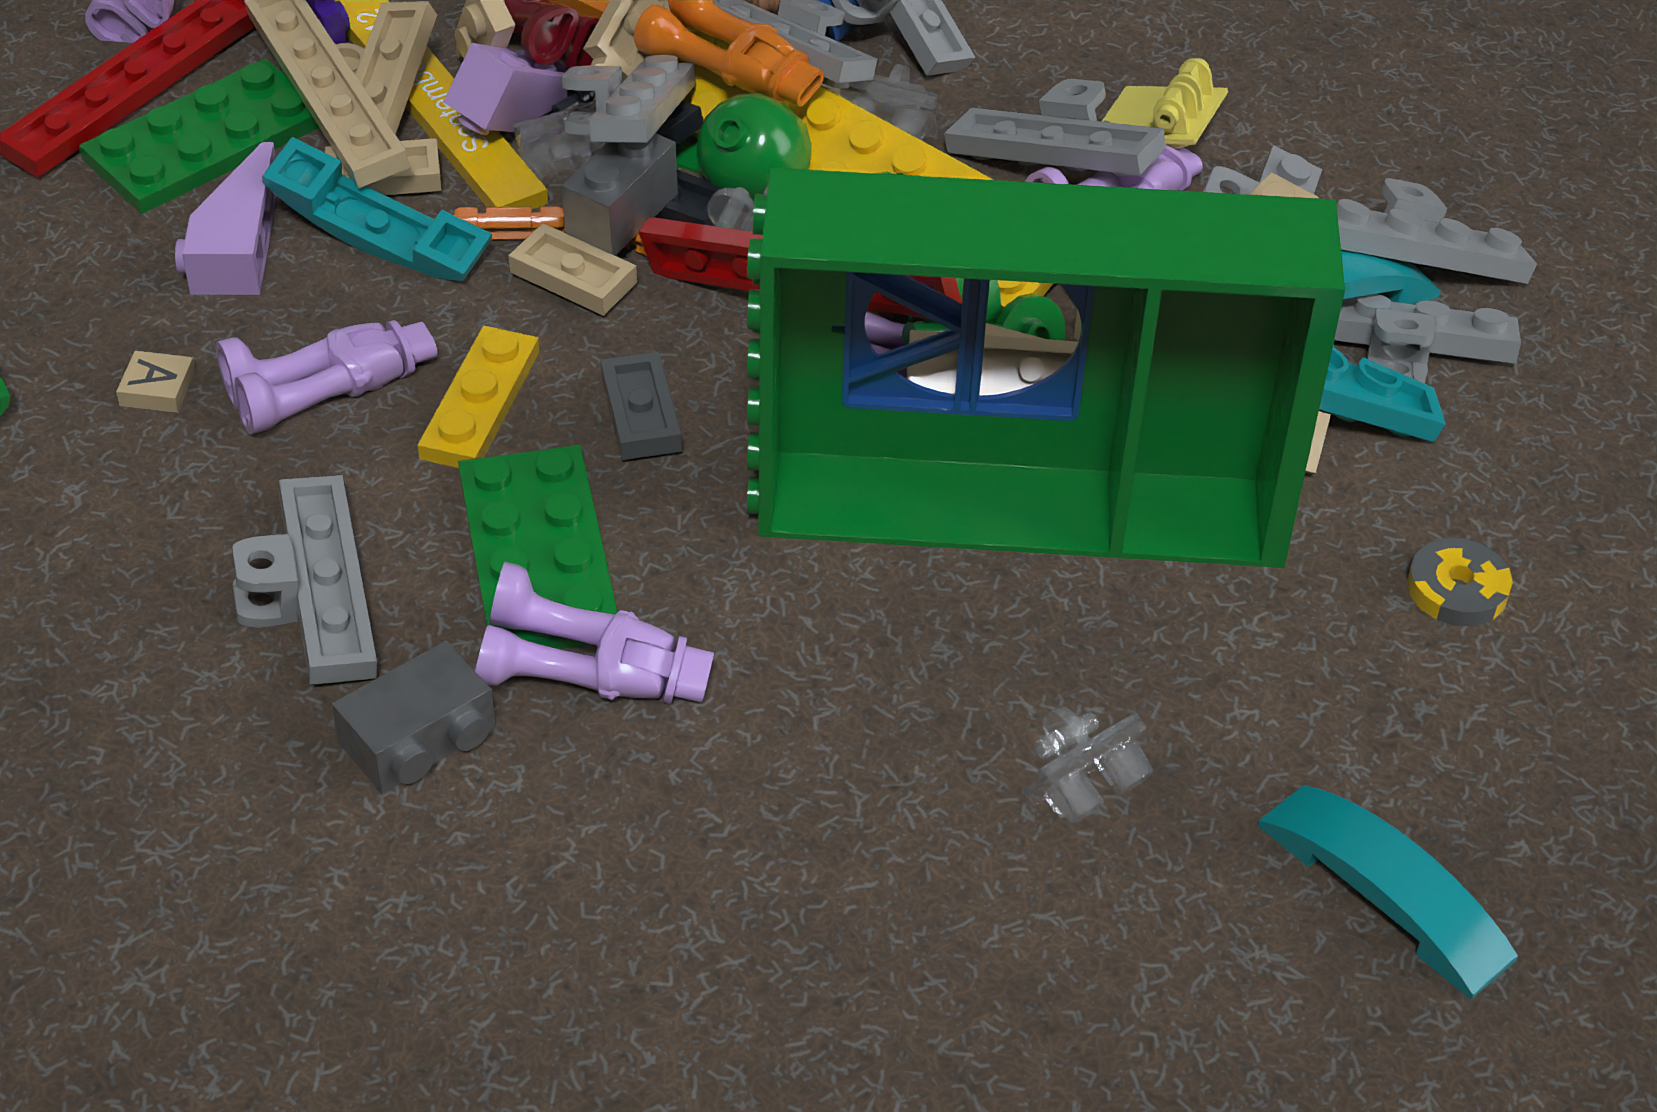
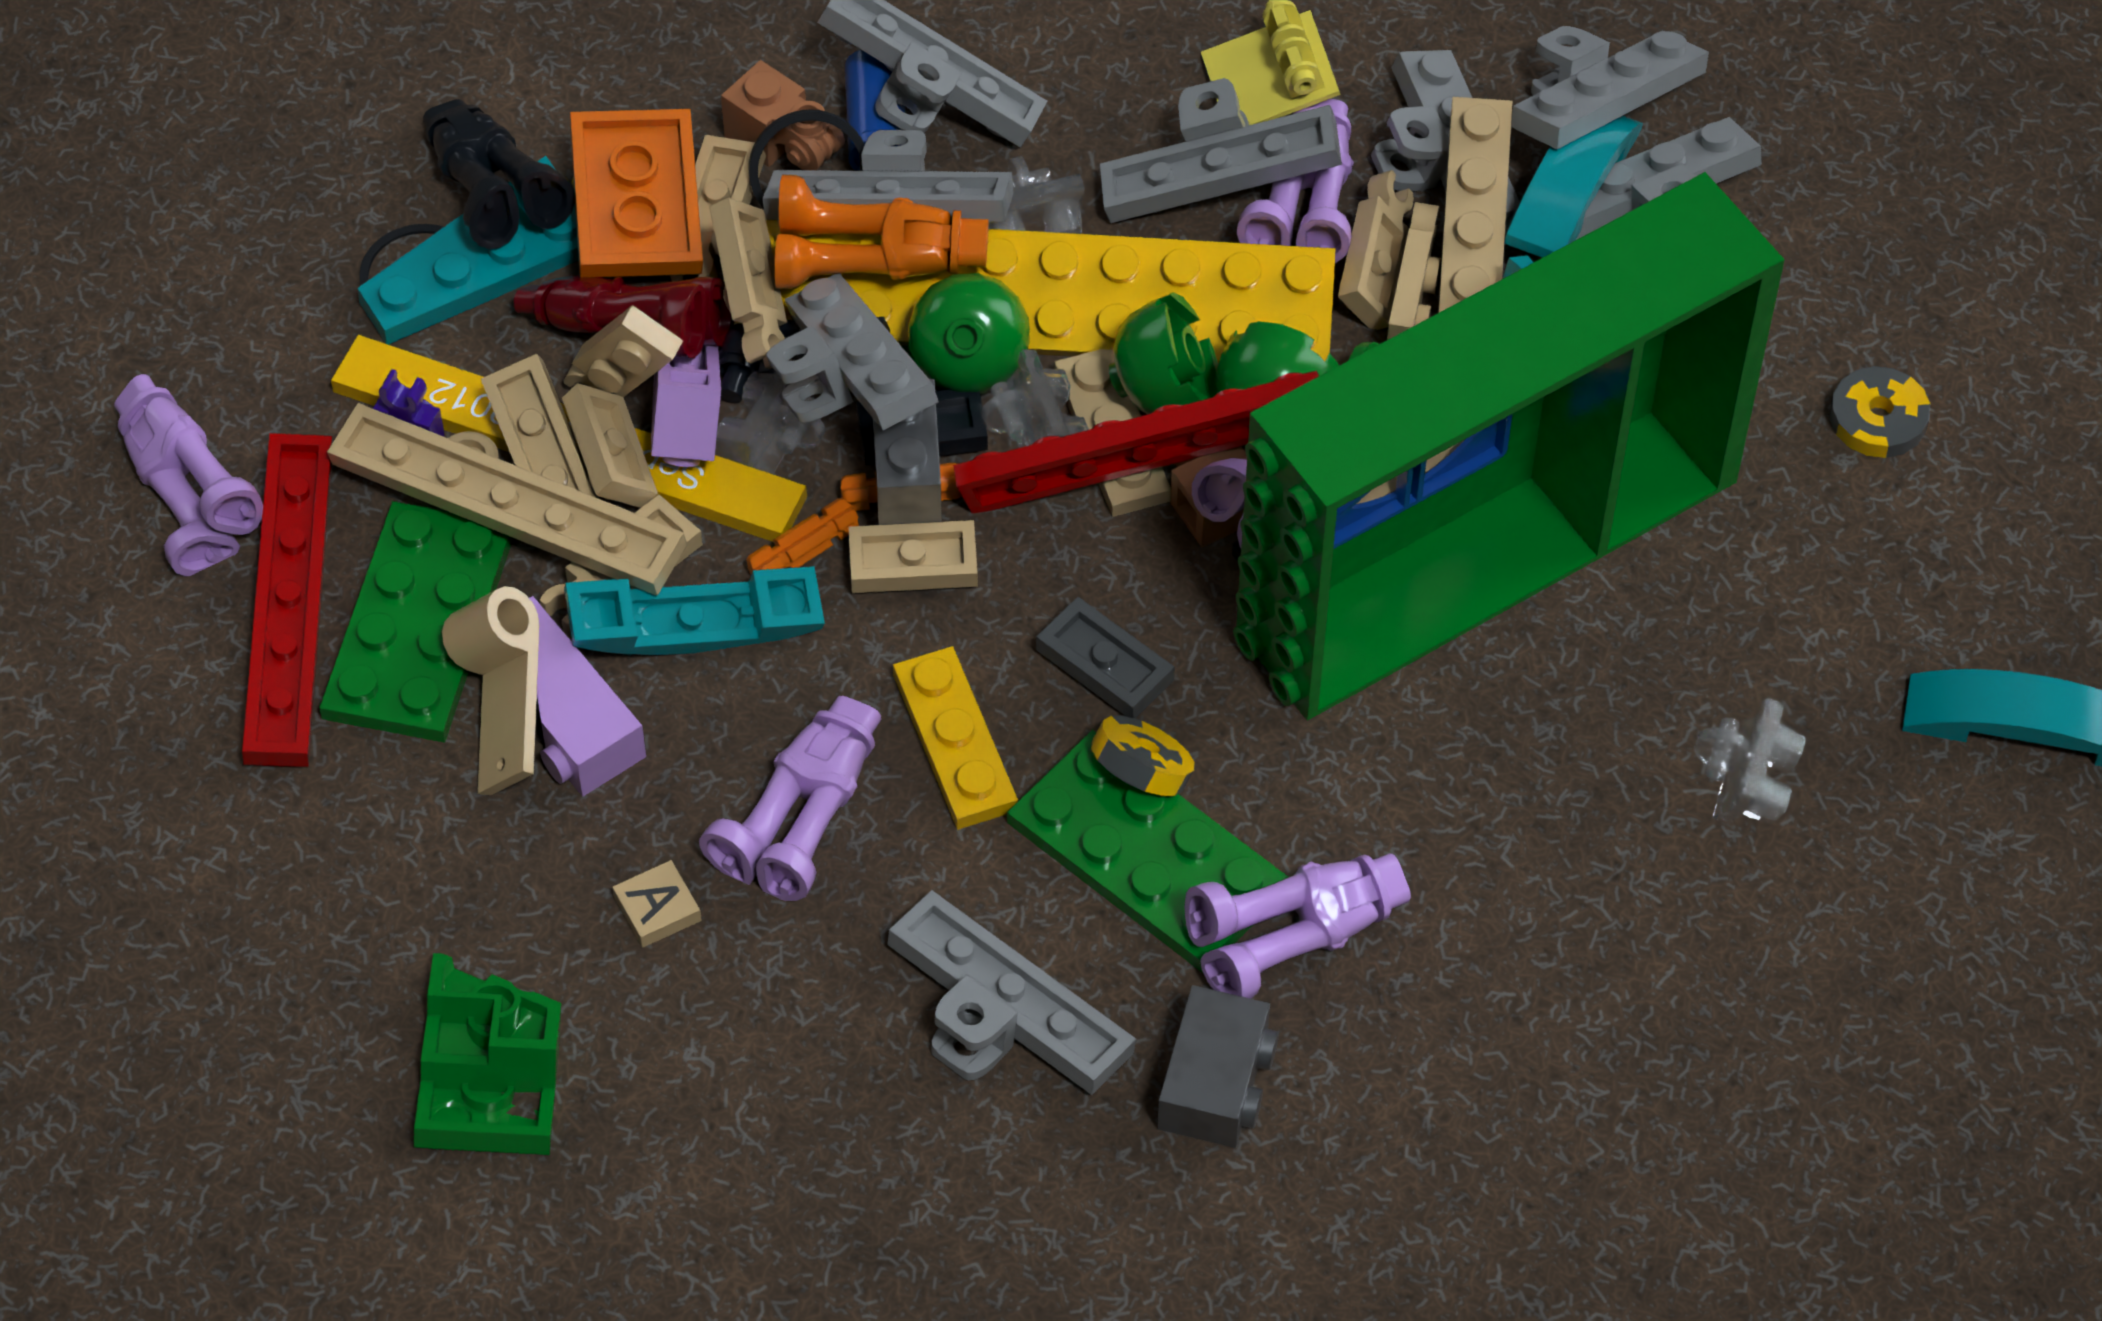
camera: 35 degrees left, 10 degrees up
(212, 153) = (501, 642): none -> tan door
(420, 91) = (609, 445): none -> tan plate
(590, 475) = (1142, 755): none -> piece

